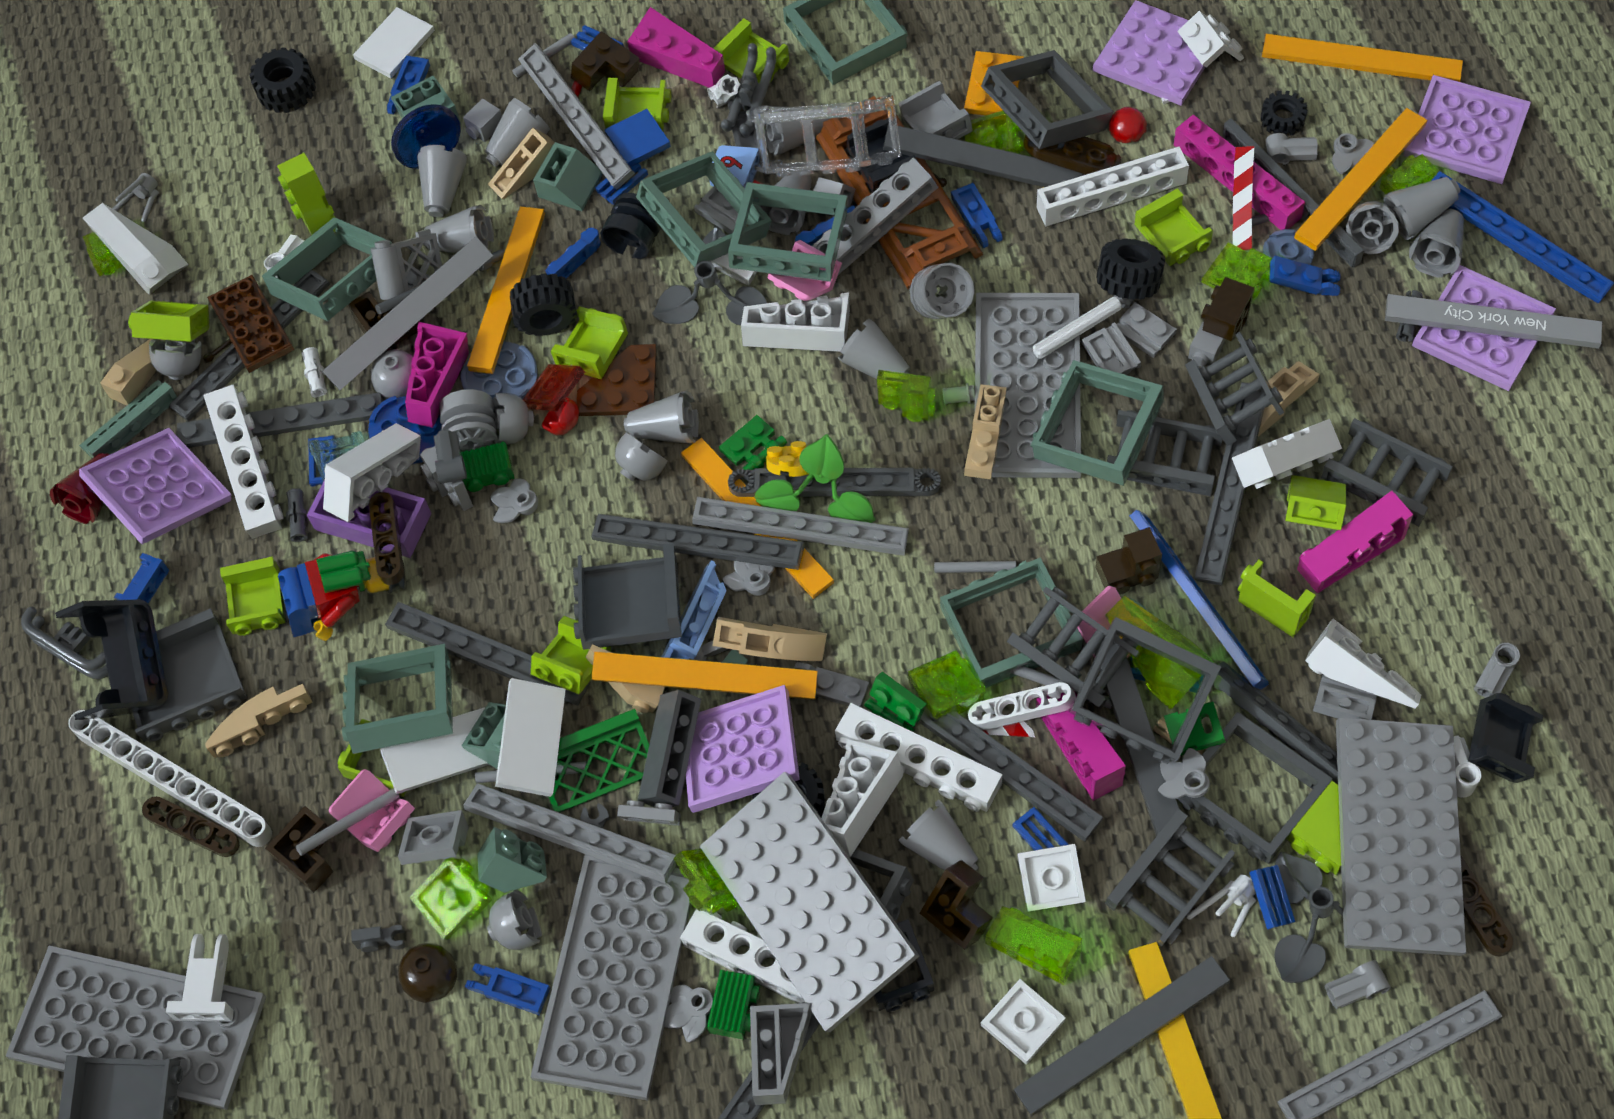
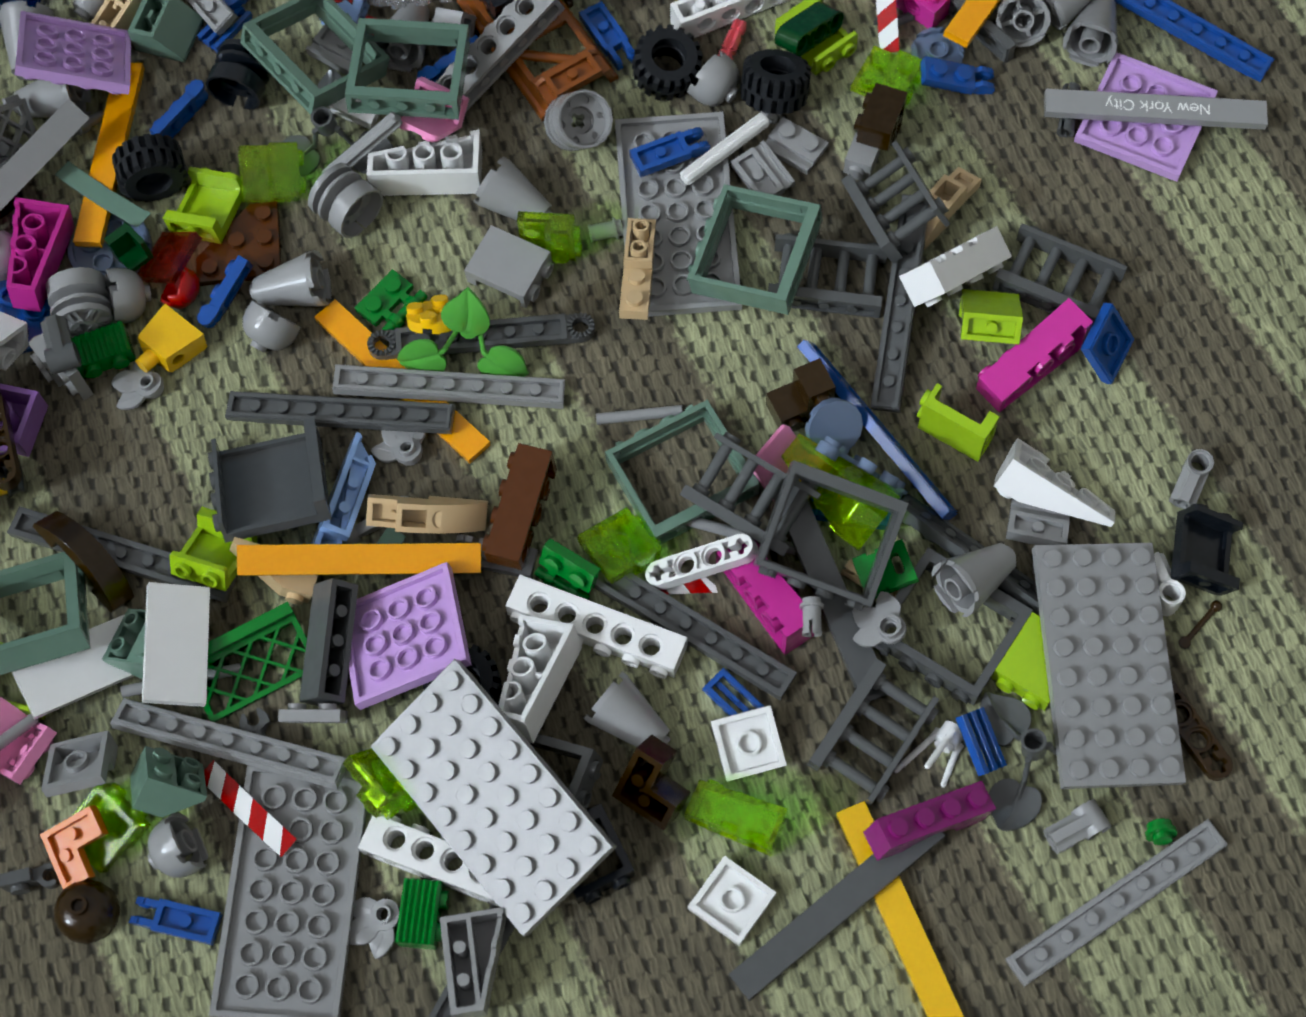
camera: 10 degrees left, 5 degrees up
(415, 909) = (67, 842): none -> plate
(458, 651) = (90, 556): none -> dark brown slope
(483, 196) = (73, 53): none -> lavender plate
(497, 326) = (102, 195): none -> sand green sticker
(517, 375) = (128, 247): none -> dark green panel
(546, 464) = (169, 341): none -> yellow torso
(582, 894) = (248, 809): none -> sticker
(601, 423) = (224, 293): none -> blue hinge
(653, 317) = (271, 172): none -> clear neon green plate
(719, 346) = (344, 198): none -> light grey wheel
(738, 301) = (368, 141): none -> light grey axle
(856, 640) = (519, 506): none -> reddish brown wedge
(866, 419) = (510, 265): none -> light grey panel
(1024, 325) = (668, 151): none -> blue hinge
(1034, 226) = (669, 43): none -> black tyre
(1074, 264) = (716, 81): none -> light grey cylinder
(1092, 229) = (733, 37): none -> coral axle
(1120, 763) = (811, 616): none -> light grey pin
(1155, 612) = (833, 449): none -> sand blue plant
(1158, 590) = (835, 419): none -> sand blue tile
(1167, 222) = (809, 28): none -> dark green beam
(1192, 967) = (913, 824): none -> magenta arch
(1276, 741) = (972, 577): none -> light grey cone
(1426, 537) = (1107, 343): none -> blue tile
(1437, 997) = (1160, 831): none -> green plate
(1478, 823) = (1185, 642): none -> dark brown hinge

